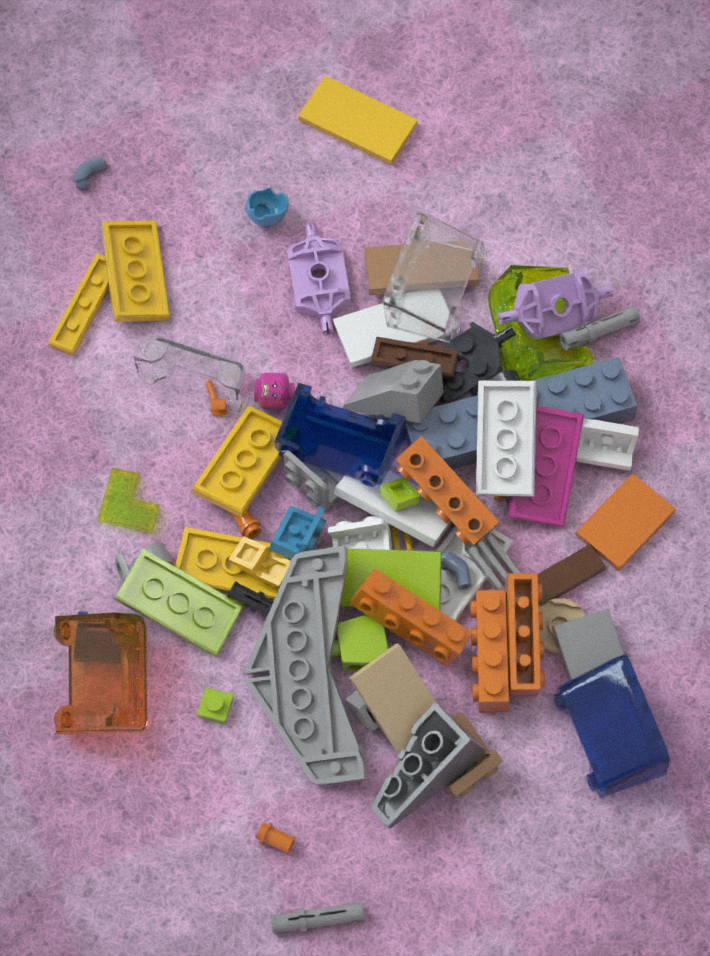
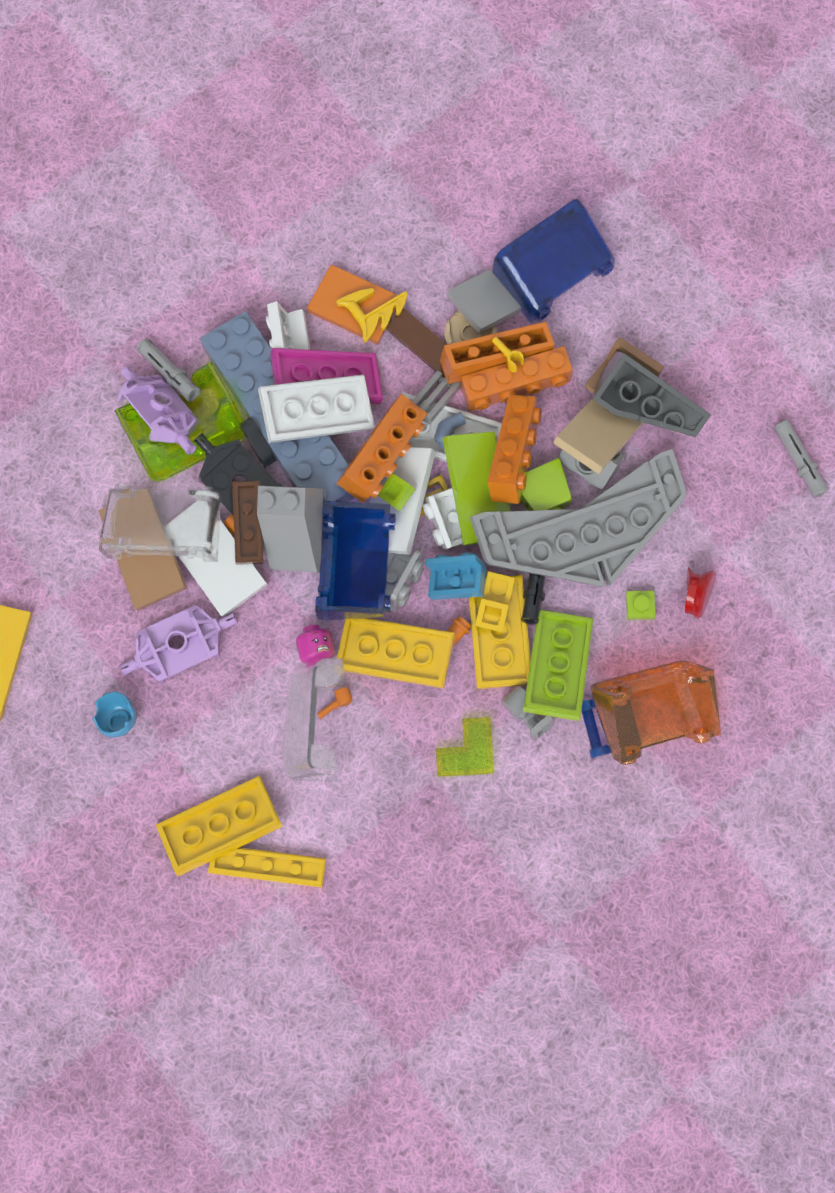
camera: 110 degrees left, 10 degrees up
(85, 170) = (116, 918): sand blue arm -> none
(205, 757) = (699, 592): none -> red piece
(275, 837) = (744, 512): orange pin -> none
(508, 636) = (510, 355): none -> yellow hand
(597, 526) = (370, 321): none -> yellow piece

